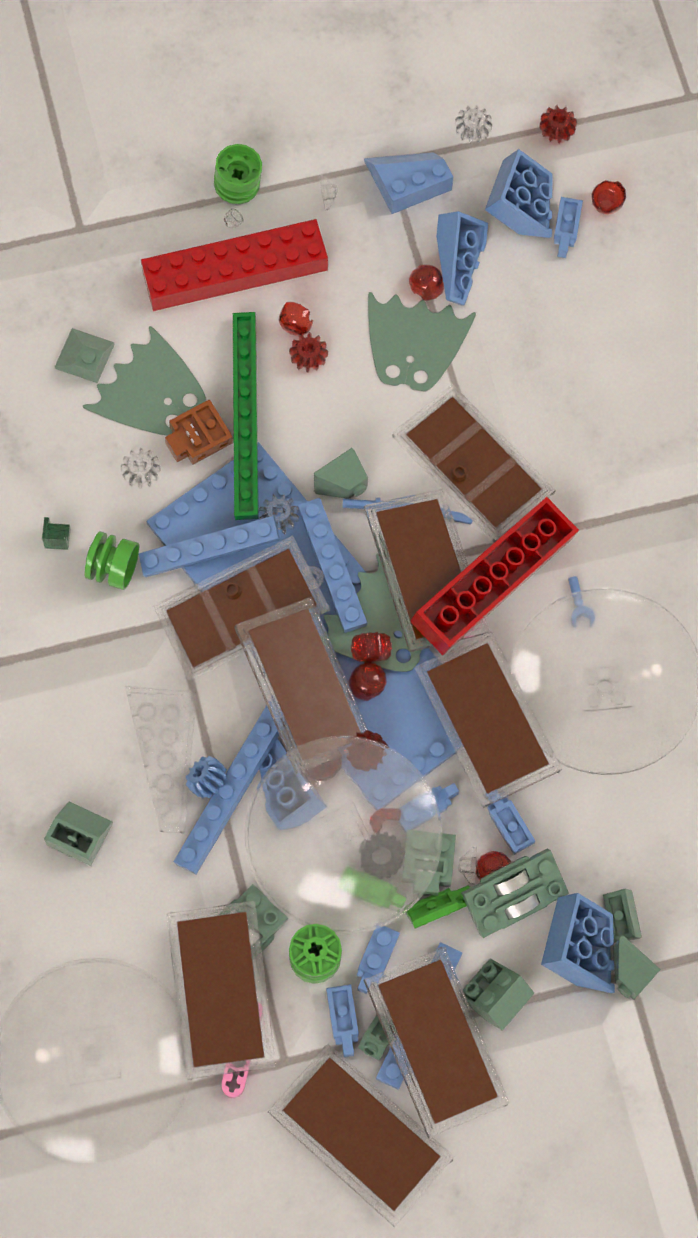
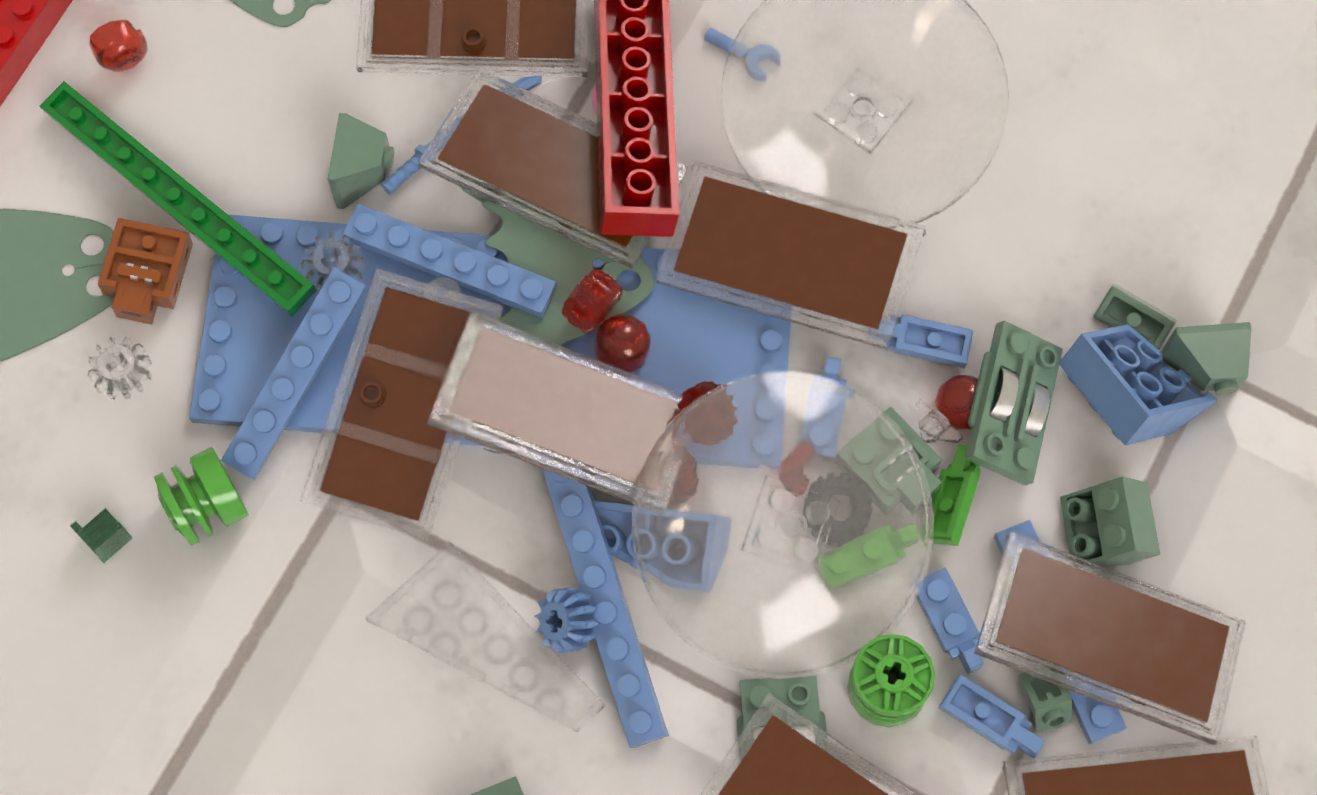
camera: 45 degrees left, 0 degrees up
(308, 352) = (171, 68): clear red gear -> none

